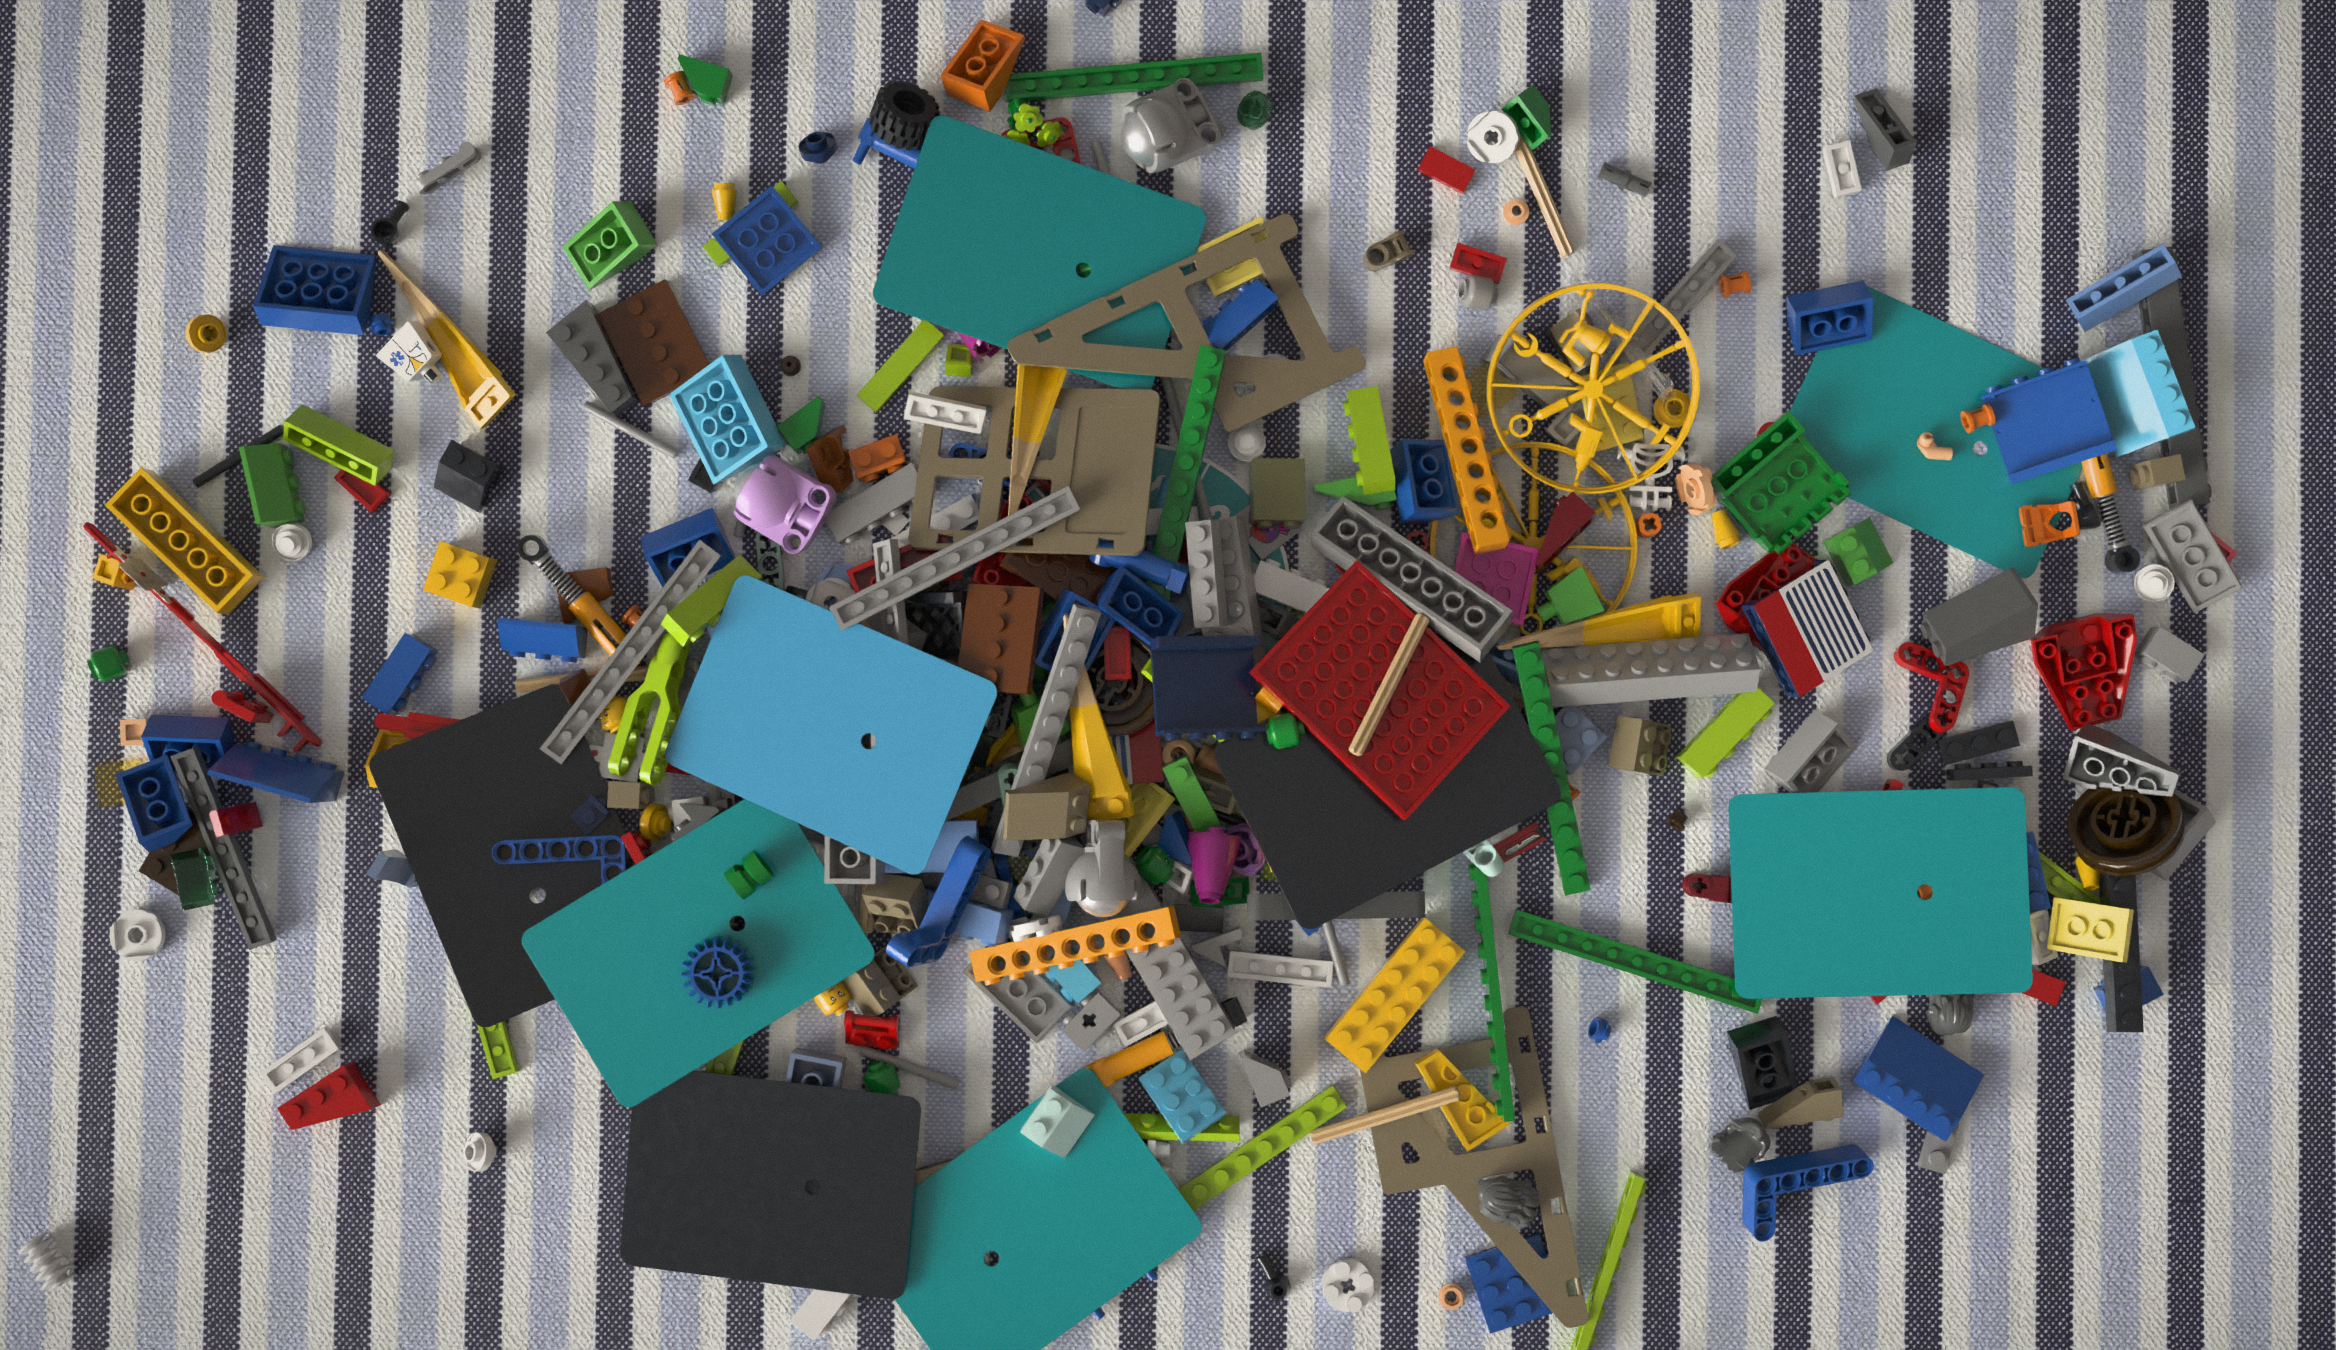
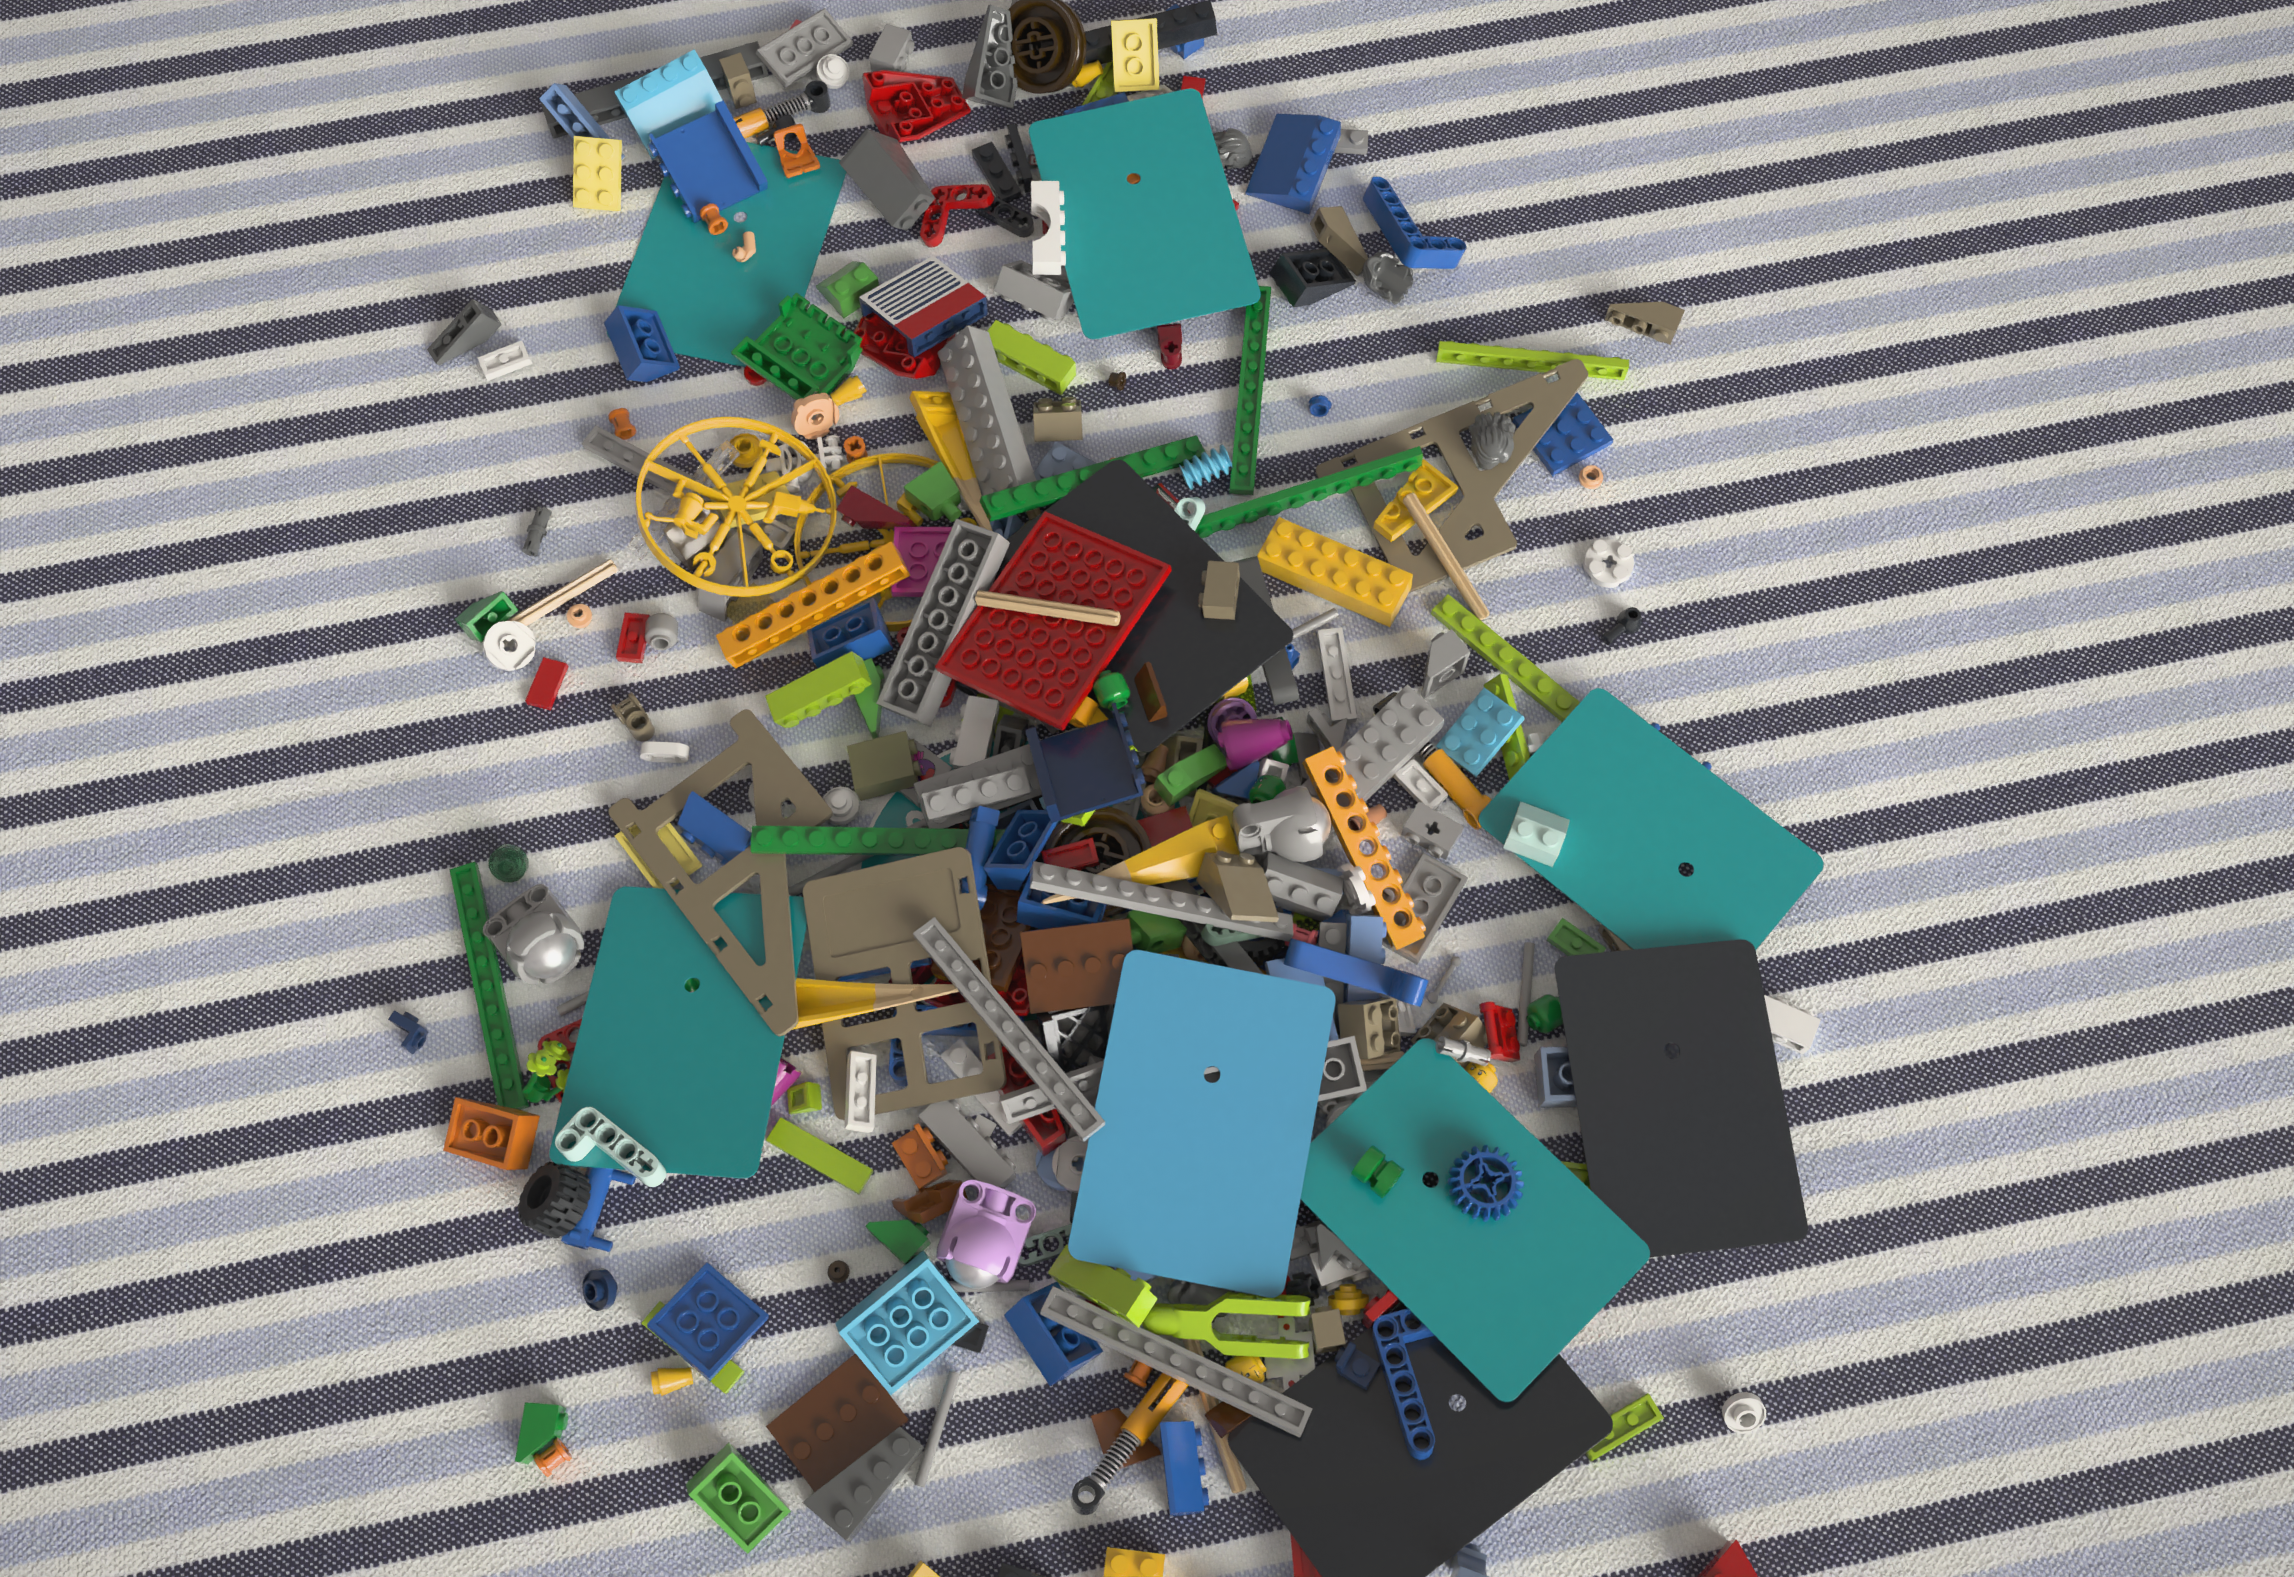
camera: 105 degrees left, 20 degrees down
(674, 784) = (1305, 1286): none -> black gear
(852, 987) = (1463, 1051): none -> light grey pin
(924, 177) = (617, 1149): none -> light aqua beam
(926, 977) = (1433, 996): none -> light grey hinge
(945, 1129) = (1572, 940): none -> bright green plate
(998, 864) = (1304, 935): none -> coral bush
(1075, 980) = (1402, 851): medium azure brick -> none
(1273, 769) = (1150, 693): none -> reddish brown slope
(1342, 277) = (664, 752): none -> white beam
(1371, 866) = (1220, 590): none -> dark tan brick
(1545, 889) = (1206, 466): none -> medium azure piece
(1907, 786) = (1047, 250): none -> white arch
(2060, 297) = (597, 173): none -> light yellow plate

